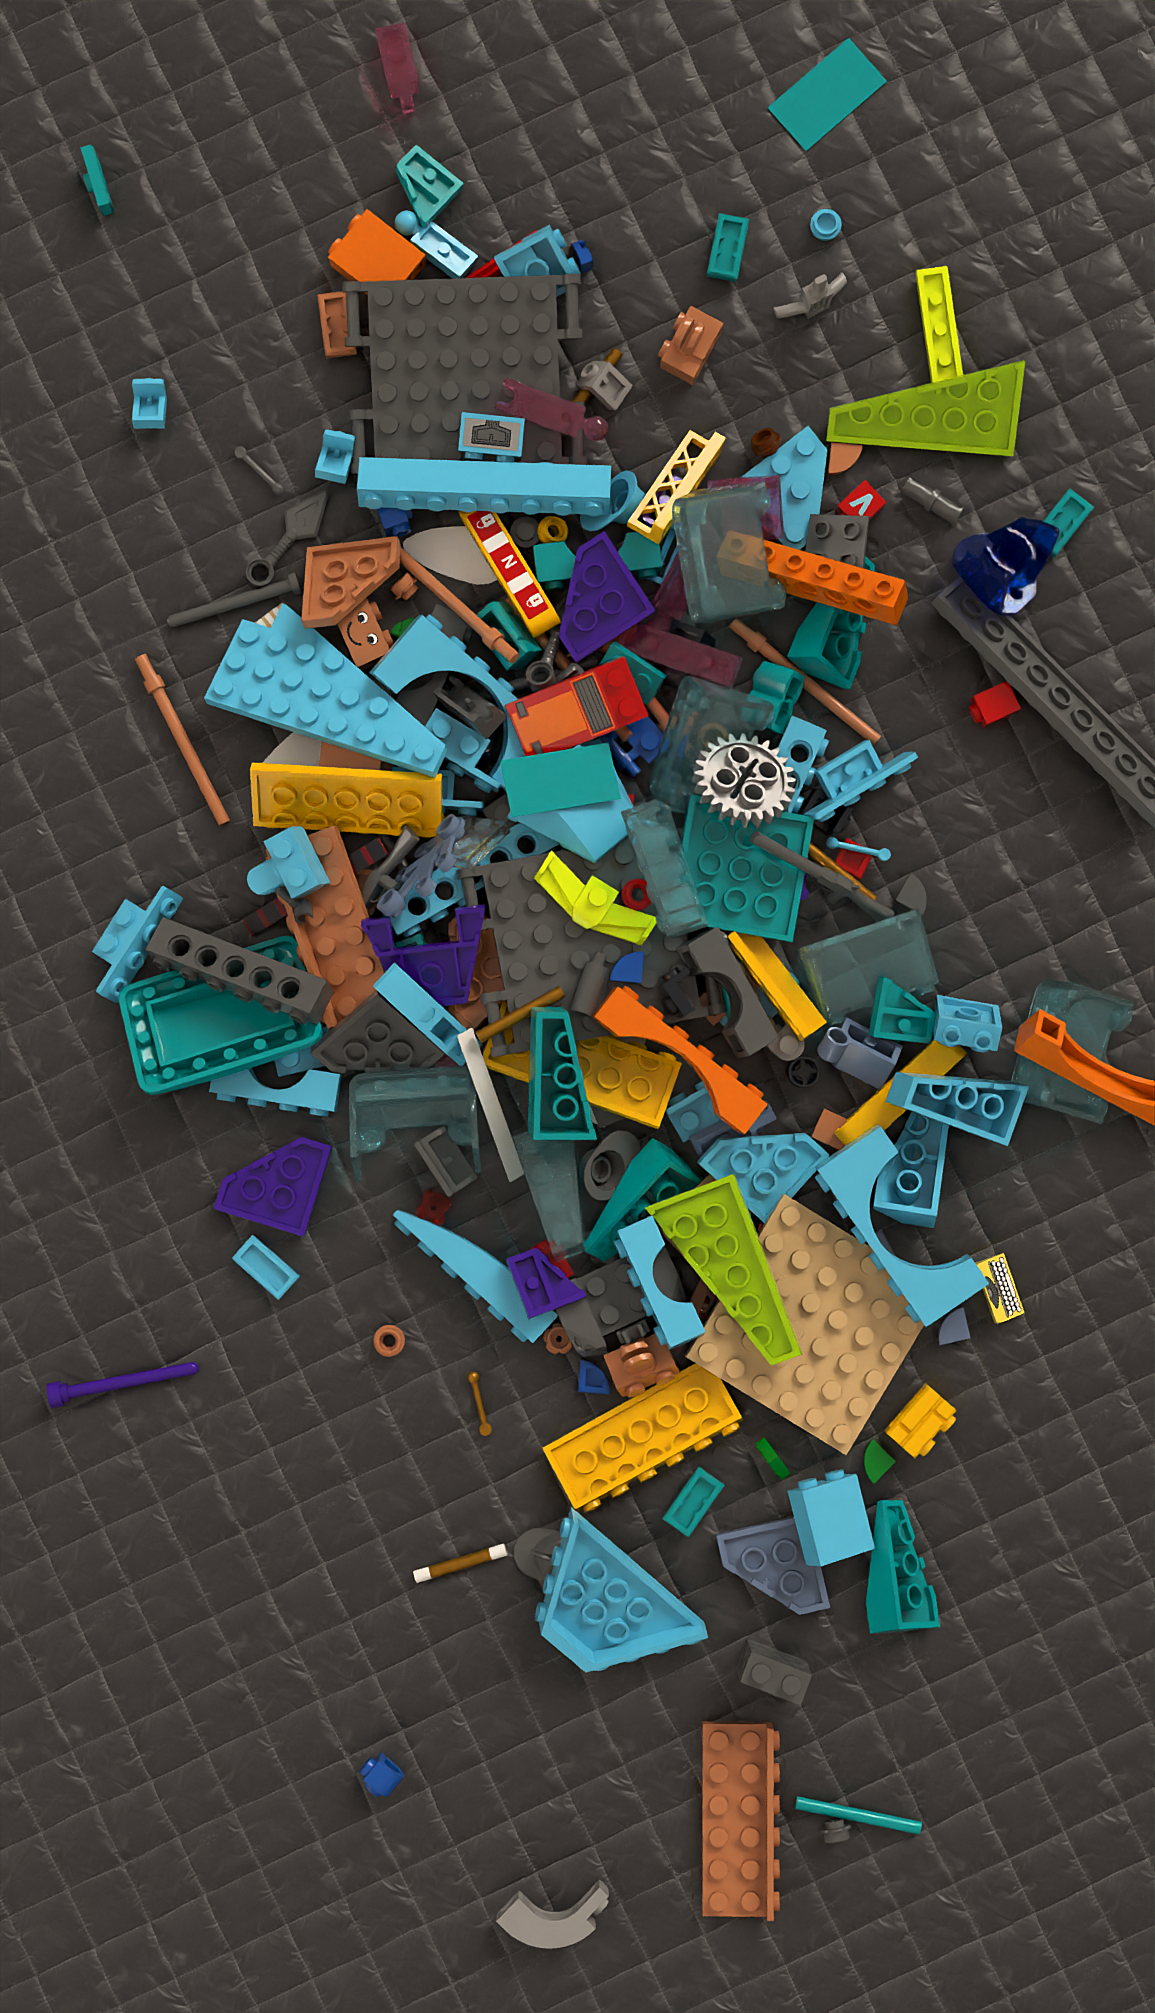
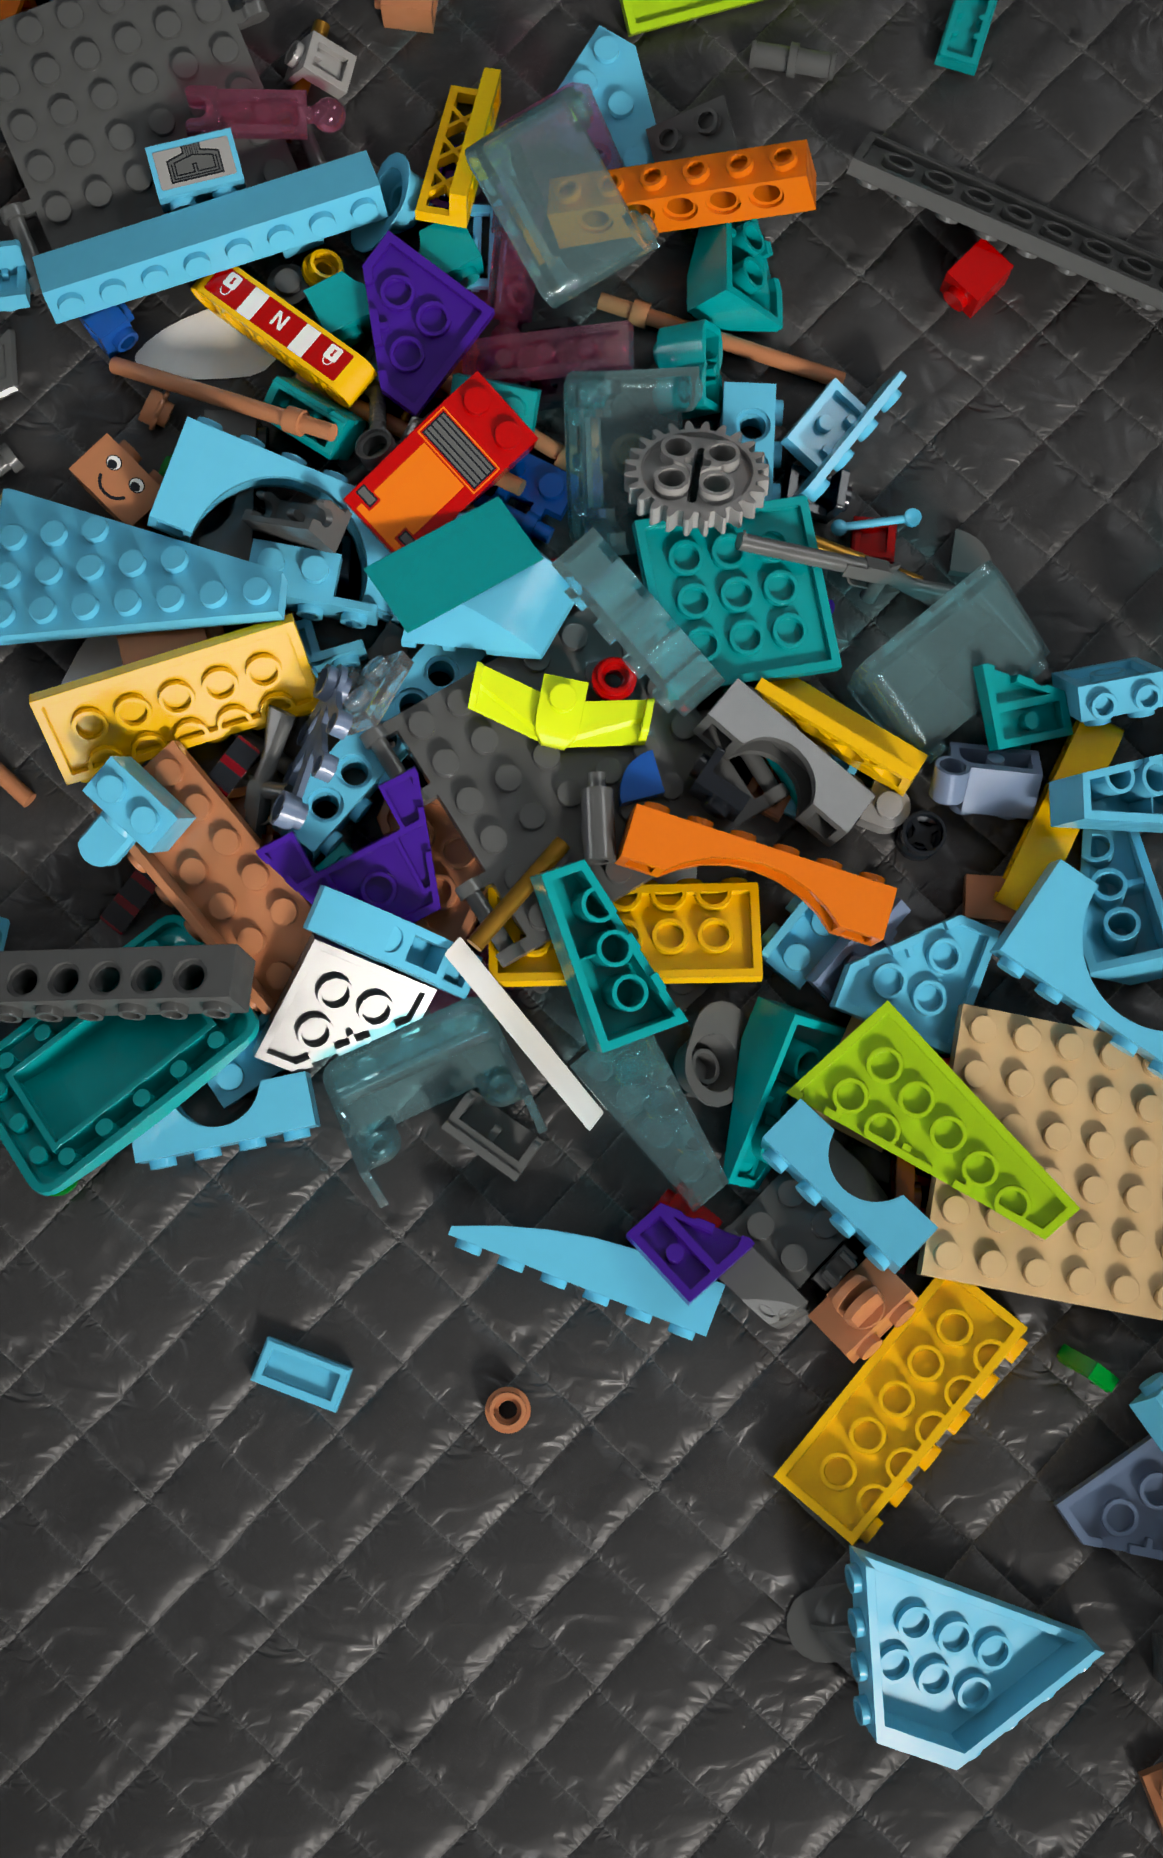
camera: 30 degrees left, 5 degrees down
(60, 1393) = (79, 1662): dark purple piece -> none
(278, 1187) = (278, 1258): dark purple plate -> none
(300, 907) = (166, 863): dark grey hand -> none
(343, 576) = (70, 419): nougat plate -> none
(433, 1199) = (500, 1192): clear red plate -> none
(460, 1563) = (721, 1682): pearl gold bar -> none
(485, 1428) = (683, 1478): pearl gold hinge -> none
(550, 1338) = (730, 1328): nougat plate -> none
(592, 1379) = (802, 1354): blue tile -> none
(693, 1501) = (1005, 1470): teal plate -> none
(765, 442) = (554, 64): reddish brown plate -> none
(842, 457) = (658, 49): nougat tile -> none
(862, 502) = (705, 84): red brick -> none
(1006, 563) = (921, 92): clear blue piece -> none

